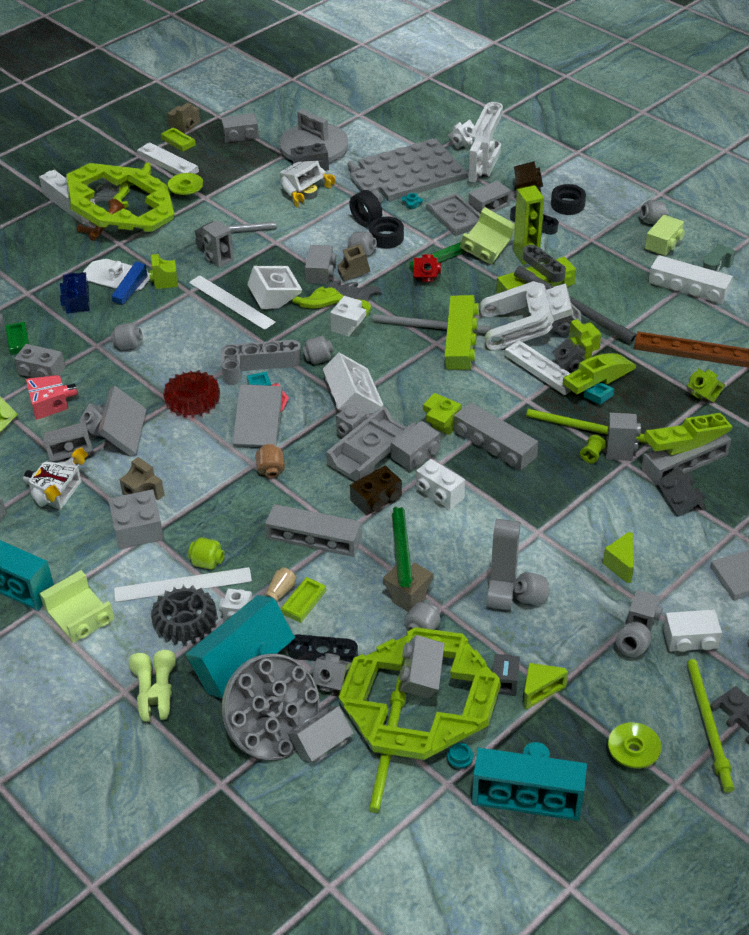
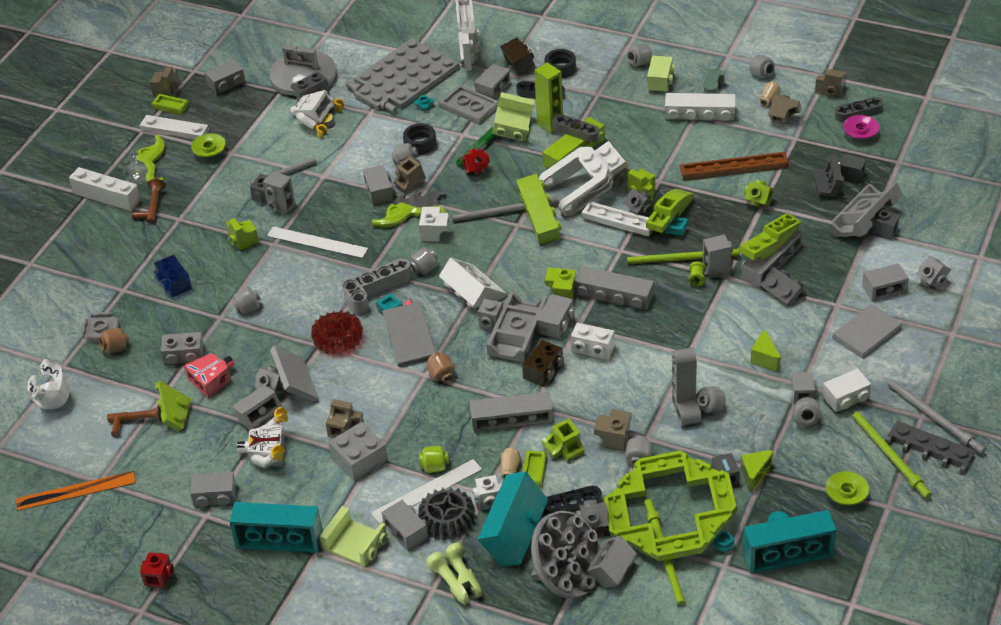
camera: 20 degrees left, 0 degrees up
(16, 337) = (143, 333): green tile -> none
(80, 194) = (141, 155): lime plate -> none
(110, 273) = (197, 248): white shield -> none
(130, 283) = (217, 252): blue piece -> none
(134, 612) = (405, 524): none -> light grey brick
(273, 286) = (350, 216): white slope -> none
(349, 580) = (564, 441): none -> lime brick
(358, 210) = (395, 114): black tyre -> none
(402, 547) = (594, 400): green axle -> none
(421, 666) = (666, 484): light grey brick -> none
(462, 134) = (436, 27): white brick -> none
(618, 330) = (665, 168): dark grey piece -> none

